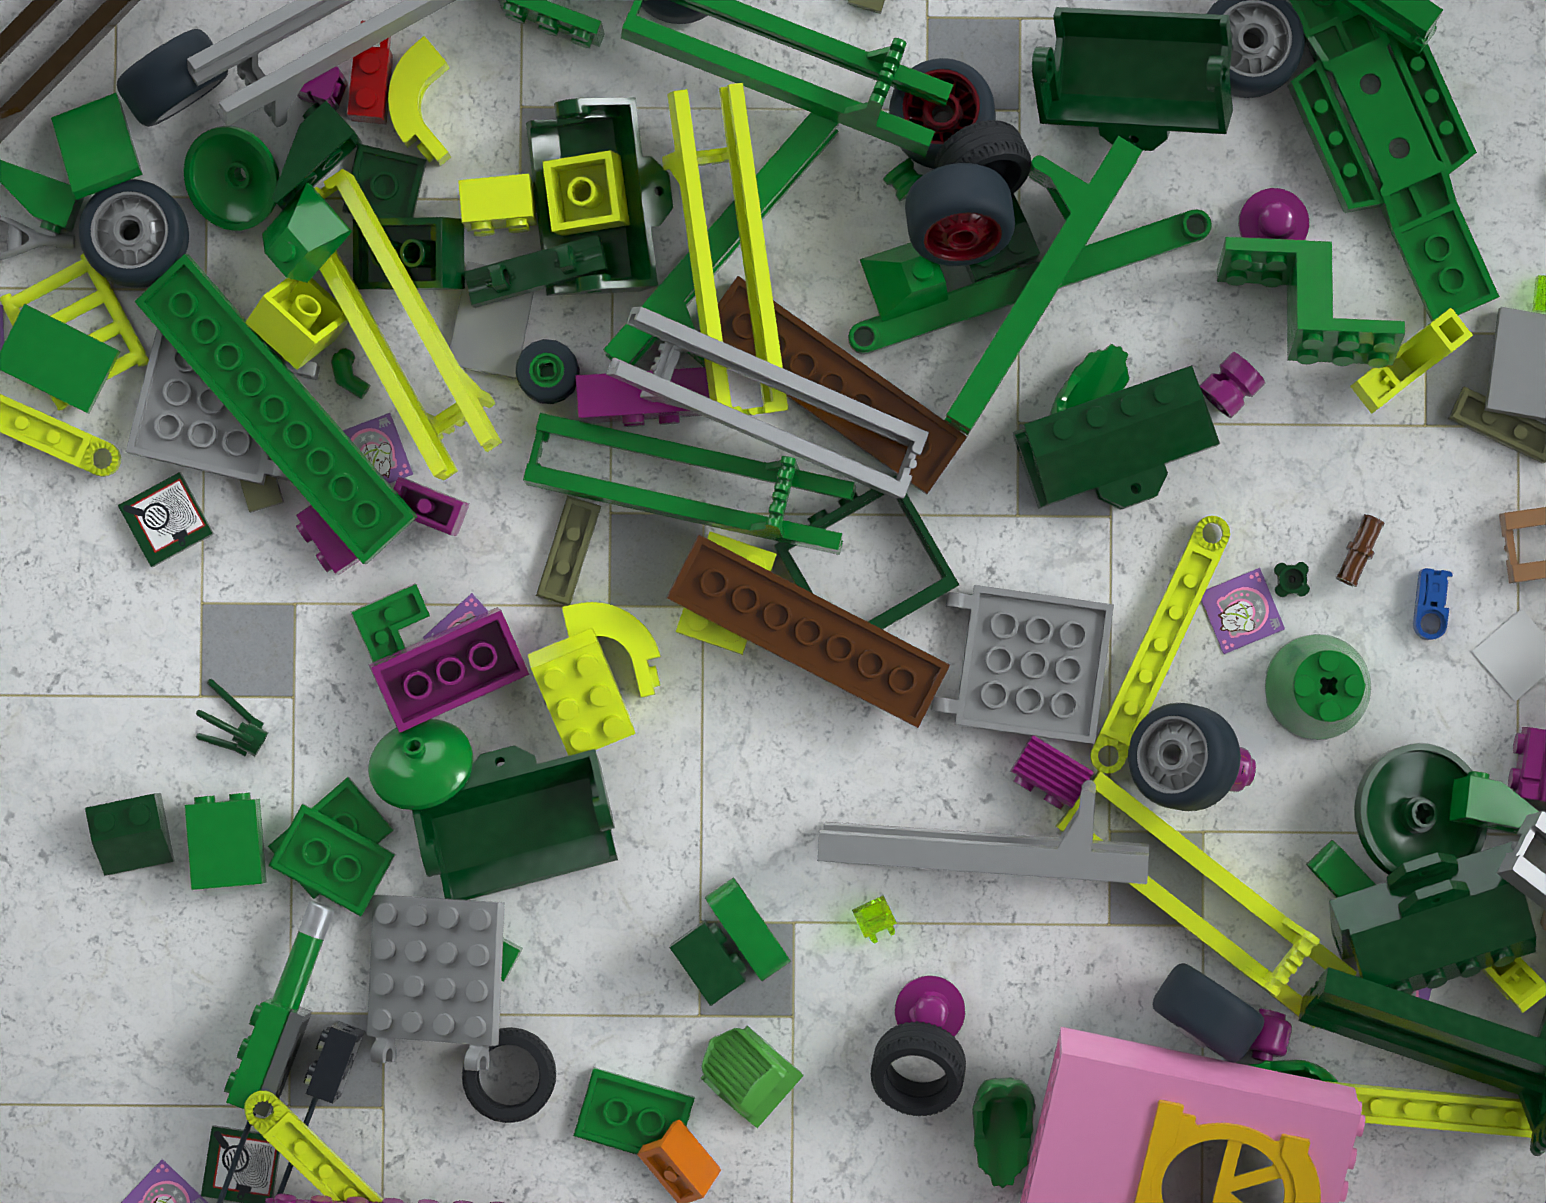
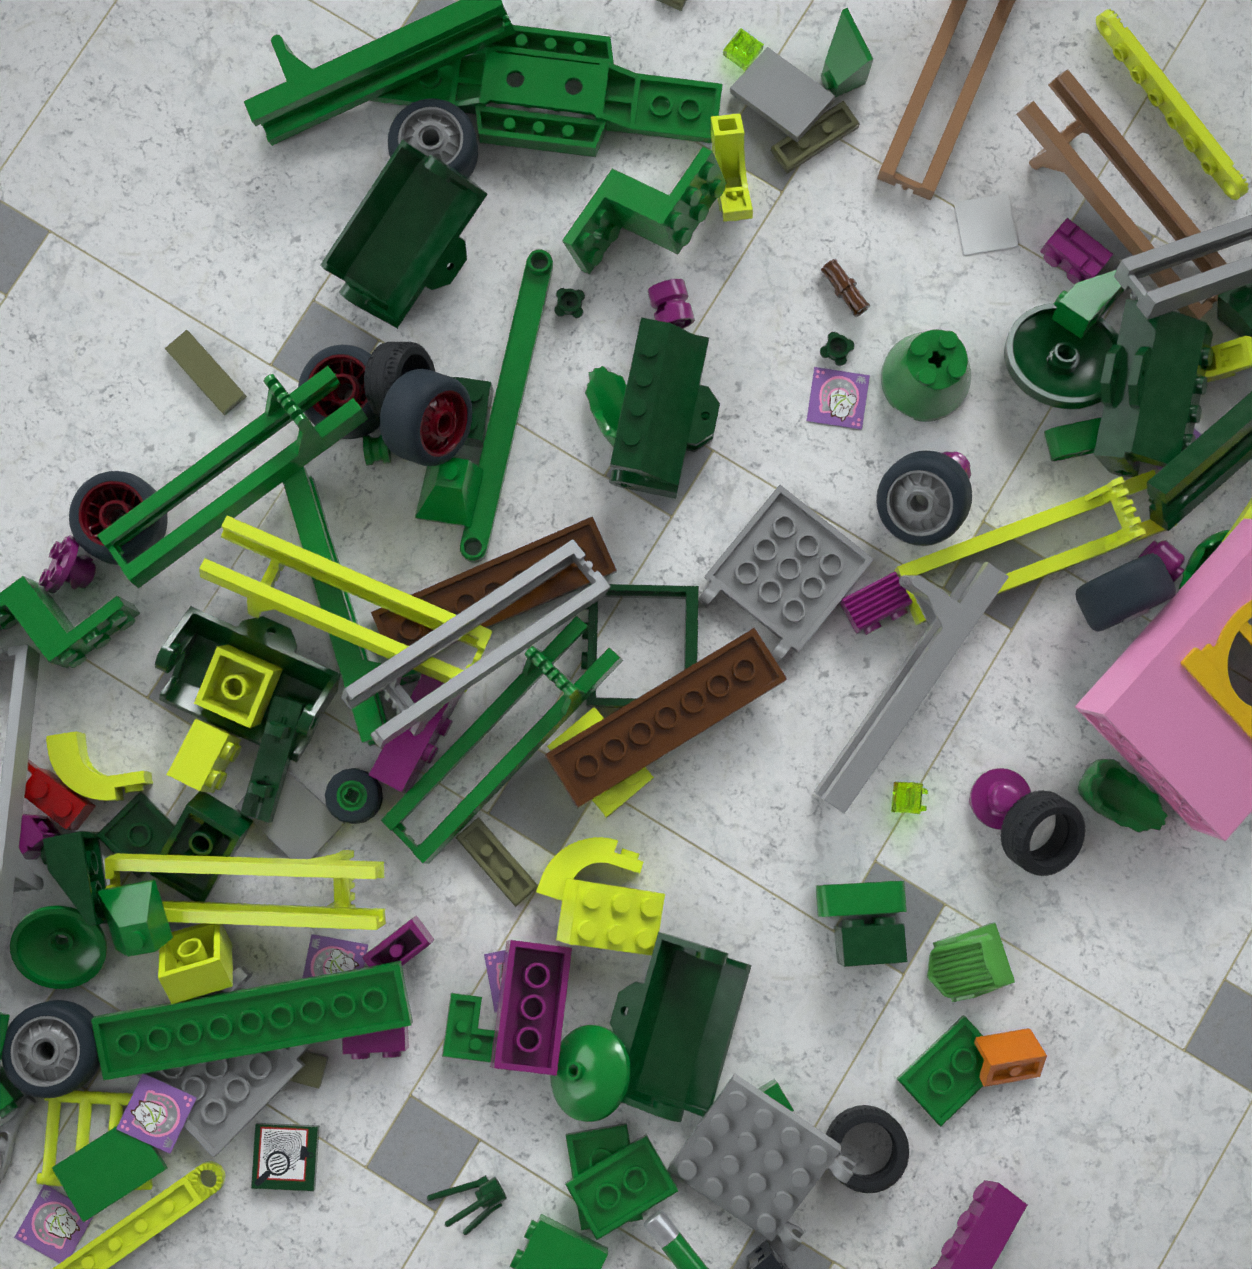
camera: 60 degrees left, 5 degrees down
(133, 371) = (156, 1113): none -> sticker
(344, 375) = (259, 951): green arm -> none
(1082, 209) = (477, 332): green piece -> none
(1160, 643) = (828, 469): neon yellow plate -> none
(1177, 270) = (565, 295): none -> dark green plate
(1274, 215) = (565, 204): magenta plate -> none
(1431, 599) = (910, 259): blue piece -> none

